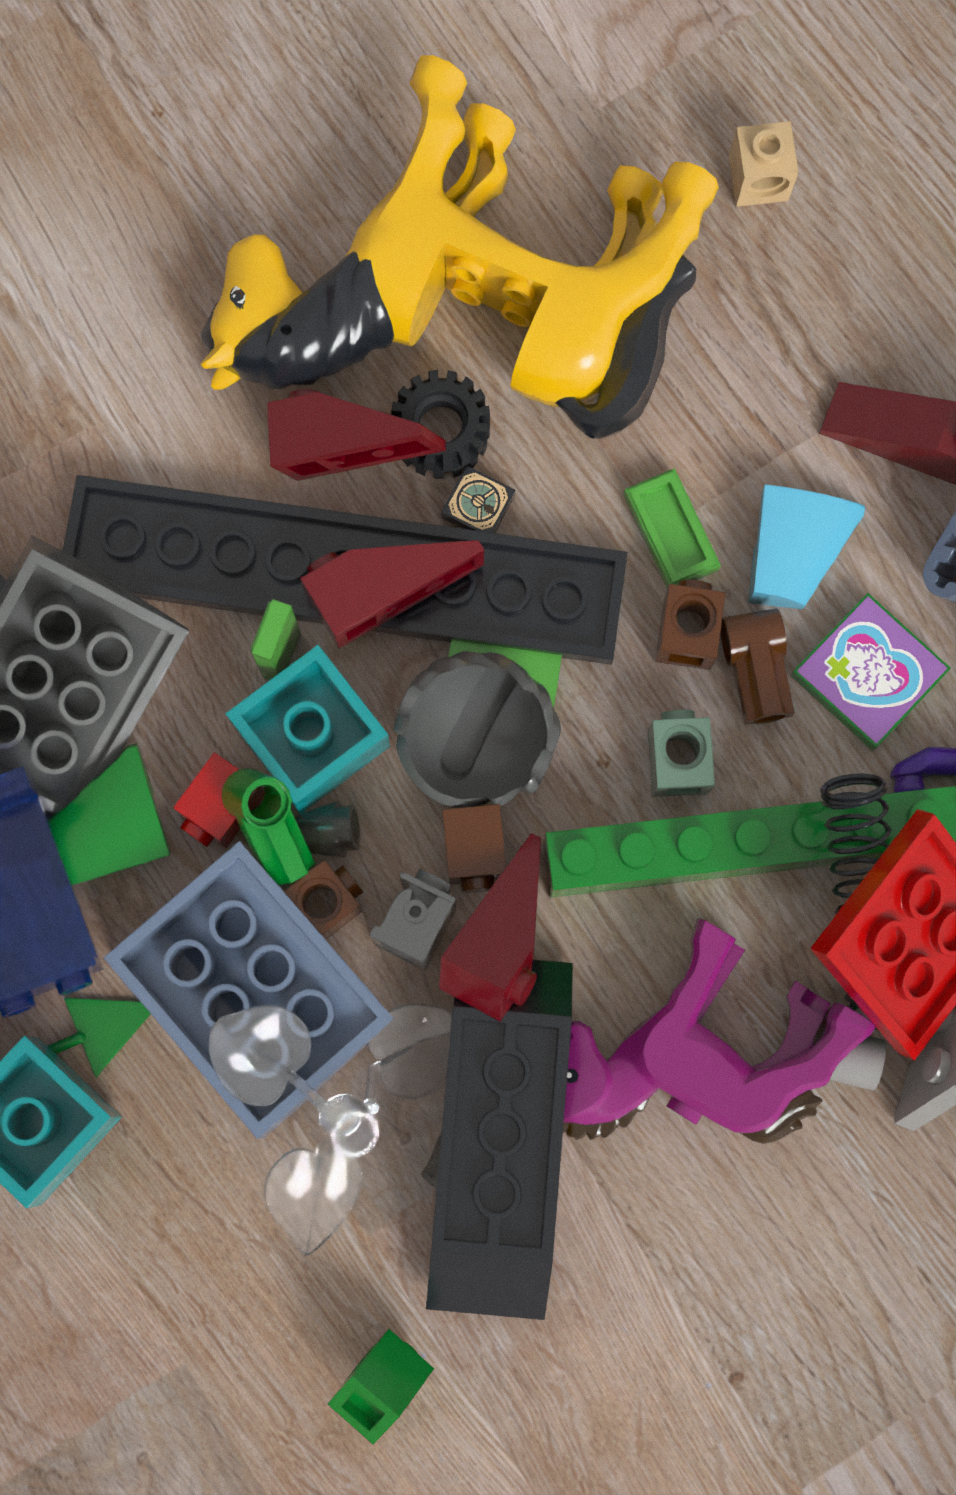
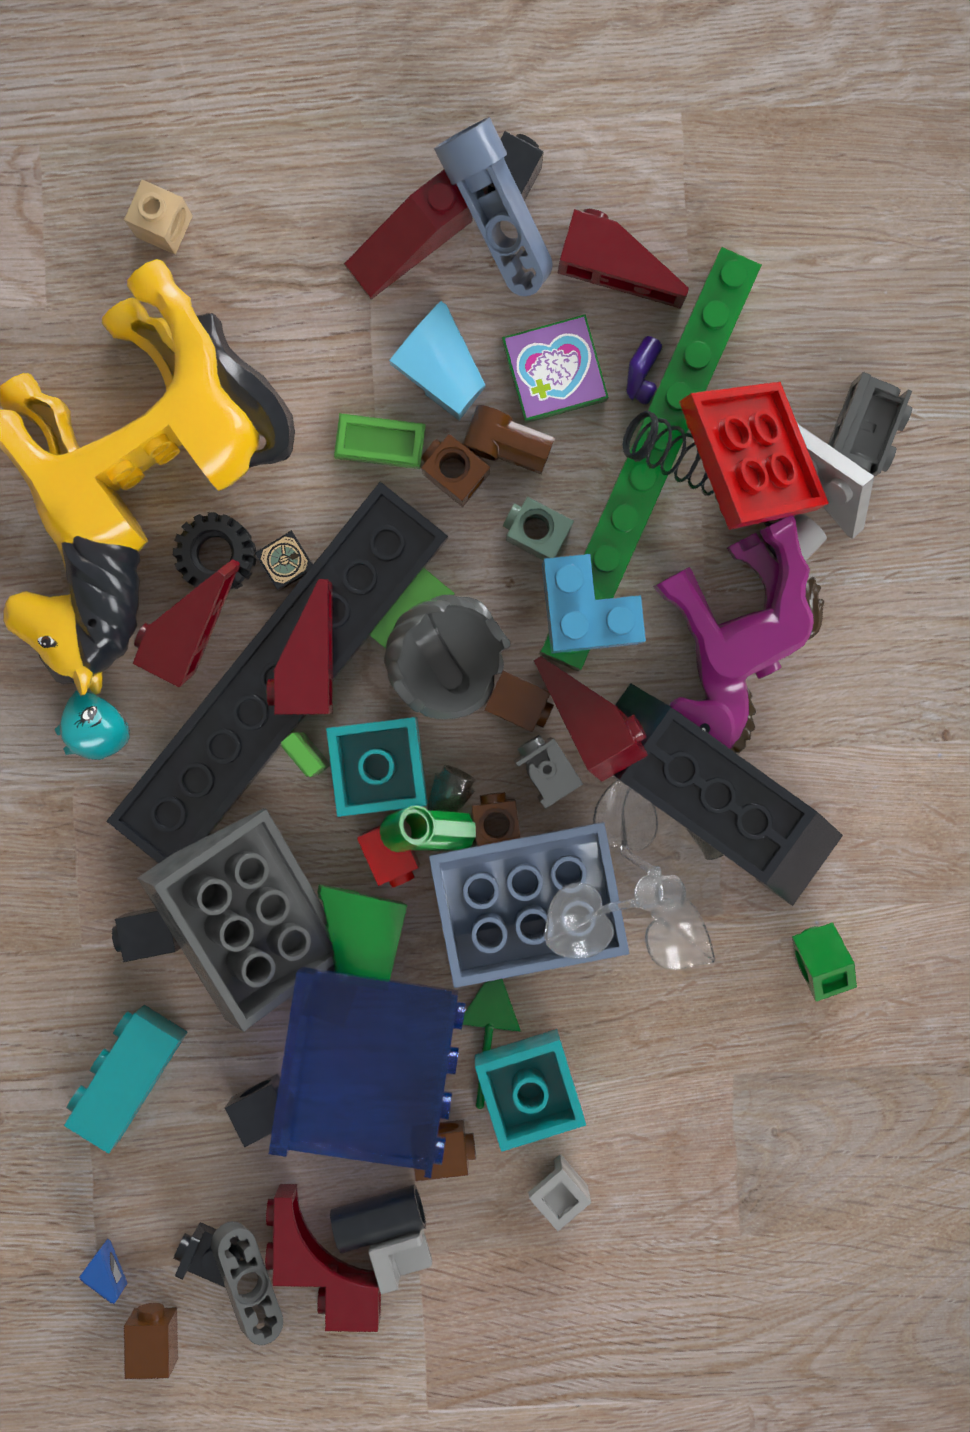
camera: 55 degrees left, 10 degrees up
(172, 402) = (92, 727): none -> teal piece
(606, 845) = (578, 619): none -> dark azure brick

